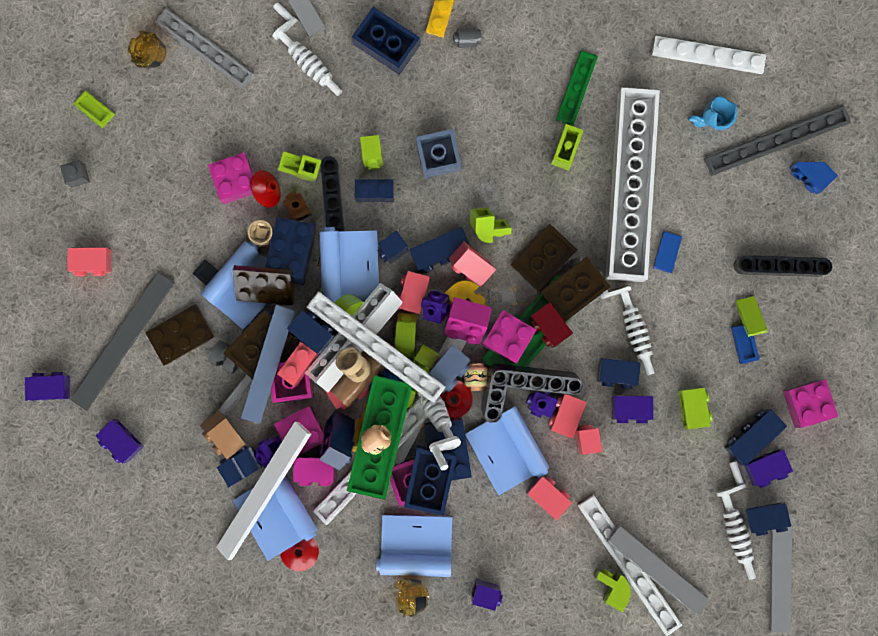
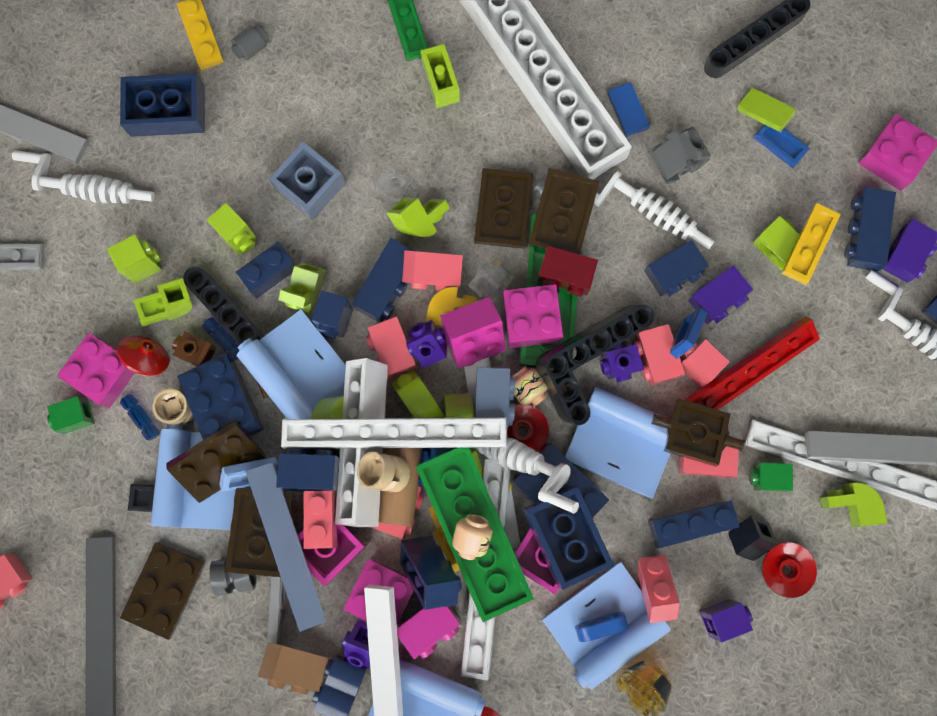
camera: 30 degrees left, 5 degrees down
(198, 192) = (70, 415): none -> green brick
(237, 223) = (139, 417): none -> clear blue axle
(269, 302) = (235, 475): none -> light blue tile
(302, 127) = (135, 258): none -> lime brick
(319, 212) = (221, 337): none -> clear blue axle
(388, 217) = (303, 287): none -> lime brick
(412, 544) = (601, 627): none -> blue beam
(460, 547) = (658, 588): none -> coral brick
(510, 527) = (693, 524): none -> dark blue brick
(538, 561) = (752, 538): none -> black panel
(550, 604) = (802, 573): none -> red dish
(552, 477) = (697, 432): none -> dark brown plate
(577, 536) = (772, 477): none -> green brick
(593, 416) = (688, 333): none -> blue tile
(614, 465) = (757, 365): none -> red plate
(674, 305) = (680, 154): none -> dark grey brick
(708, 419) = (811, 244): none -> yellow plate

